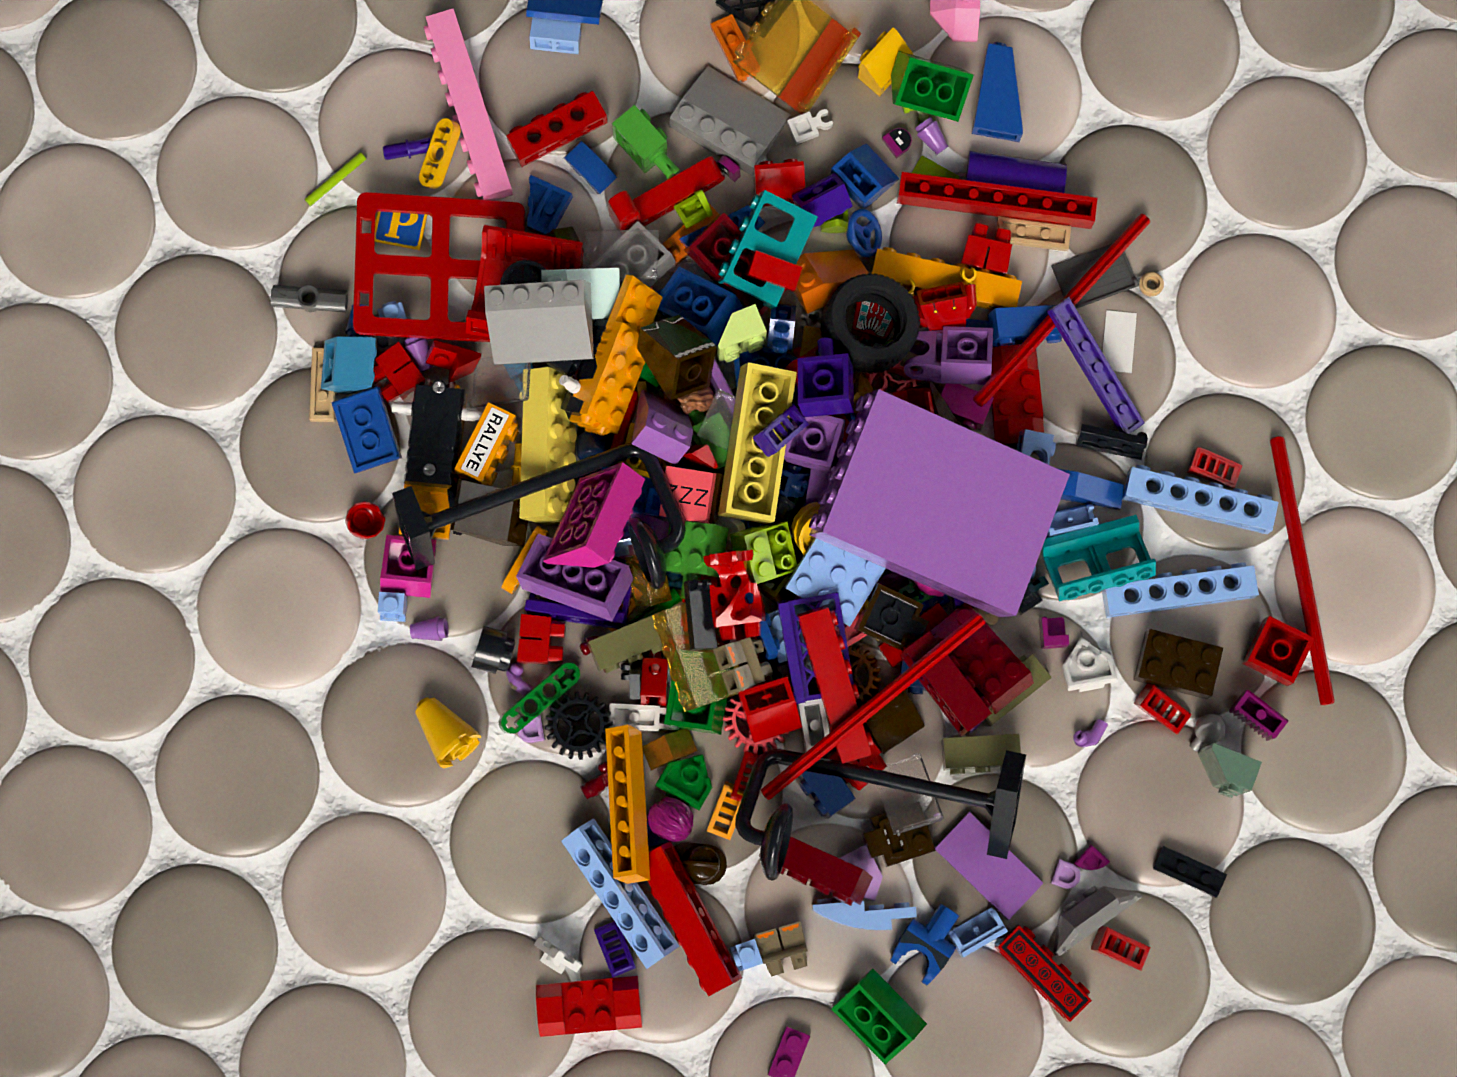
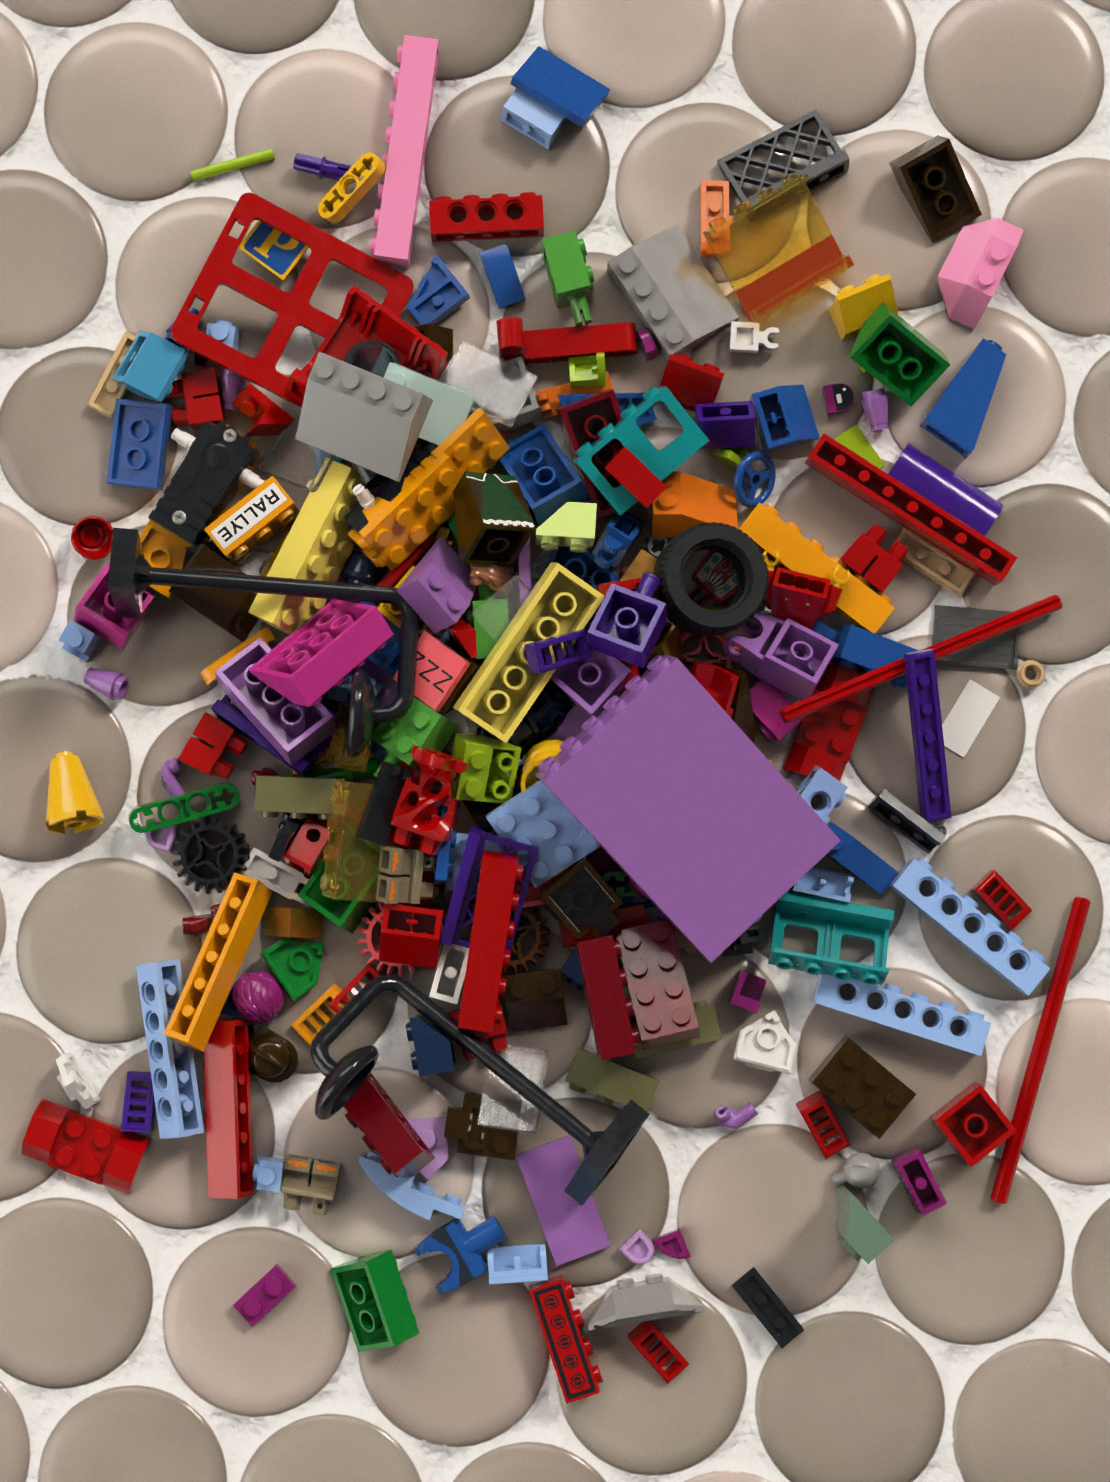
camera: 25 degrees right, 5 degrees up
(293, 298) = (131, 270): dark grey piece -> none
(493, 651) = (159, 736): black piece -> none
(873, 706) = (517, 985): red axle -> none

